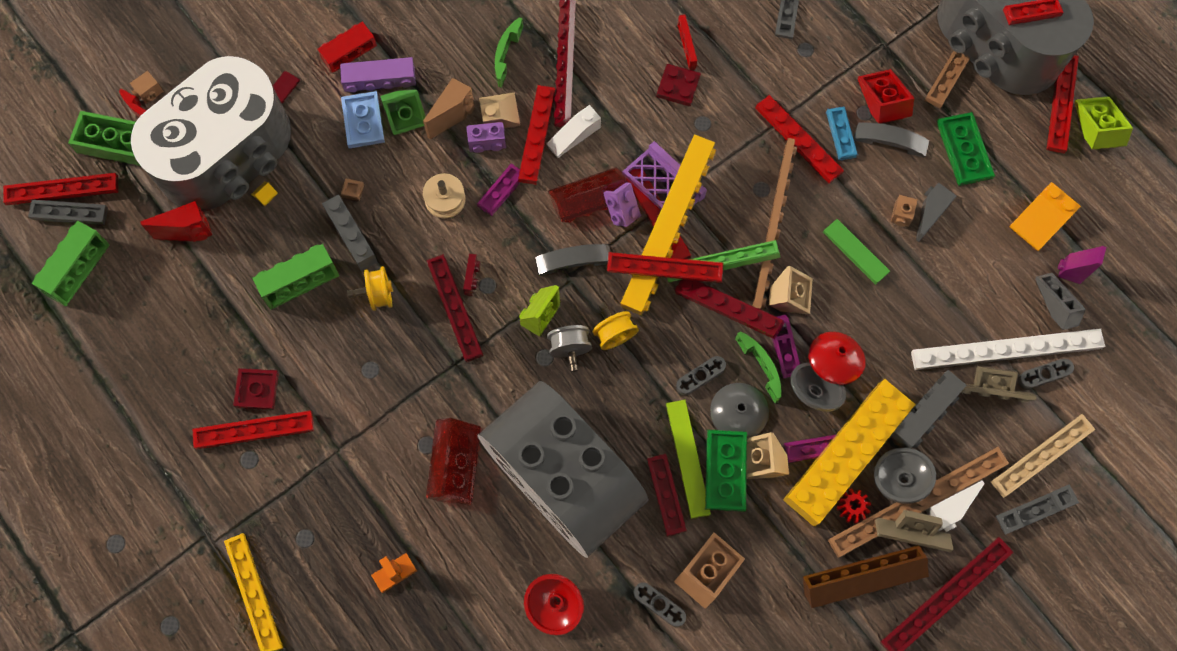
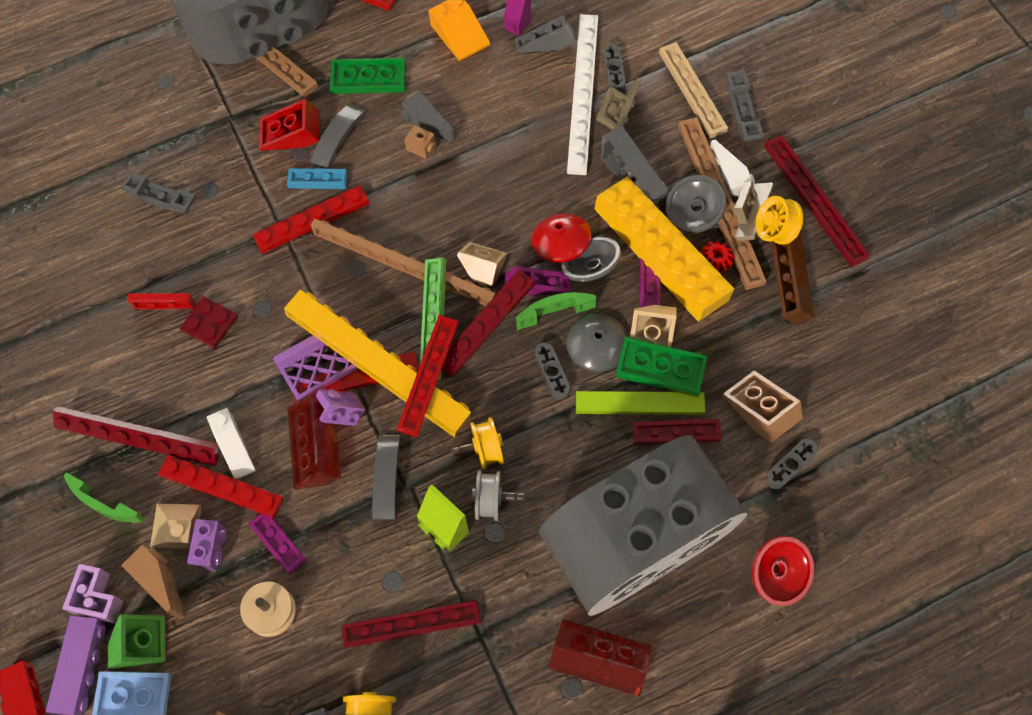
camera: 75 degrees left, 5 degrees down
(430, 64) = (87, 596): none -> lavender brick
(470, 282) = (368, 591): dark red plate -> none
(856, 251) = (451, 195): bright green tile -> none
(900, 554) = (779, 220): none -> yellow wheel

